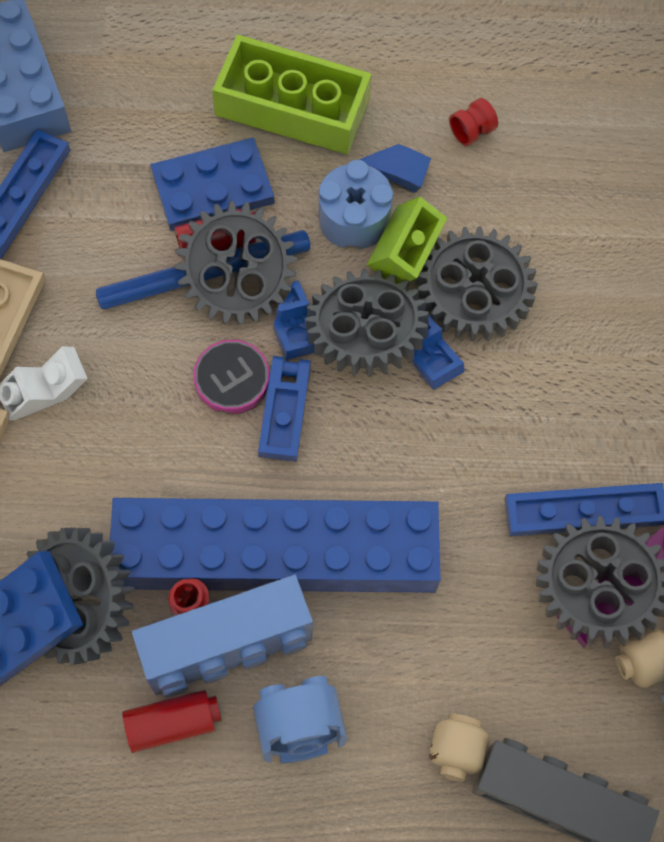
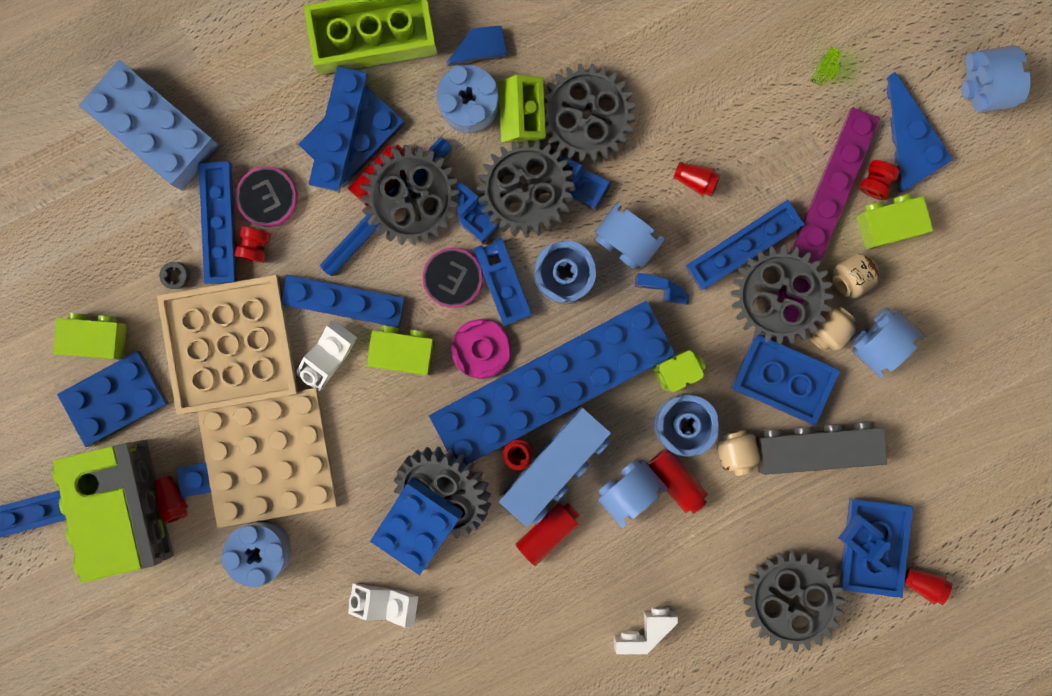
camera: 20 degrees left, 20 degrees up
(39, 232) = (252, 244): none -> red wheel
(85, 198) = (266, 196): none -> black tile
(98, 340) = (343, 301): none -> blue plate
(126, 421) = (401, 352): none -> lime brick
(199, 167) = (338, 129): none -> blue plate
(218, 466) = (481, 348): none -> dark pink tile
(362, 408) = (558, 256): none -> medium blue brick
(366, 744) = (680, 482): none -> red brick
(420, 654) = (703, 423): none -> medium blue brick
(435, 603) = (679, 370): none -> lime brick
(455, 425) = (629, 236): none -> medium blue brick
(462, 498) = (672, 292): none -> blue slope
(561, 691) = (785, 379): none -> blue plate
(567, 410) = (698, 178): none -> red cone

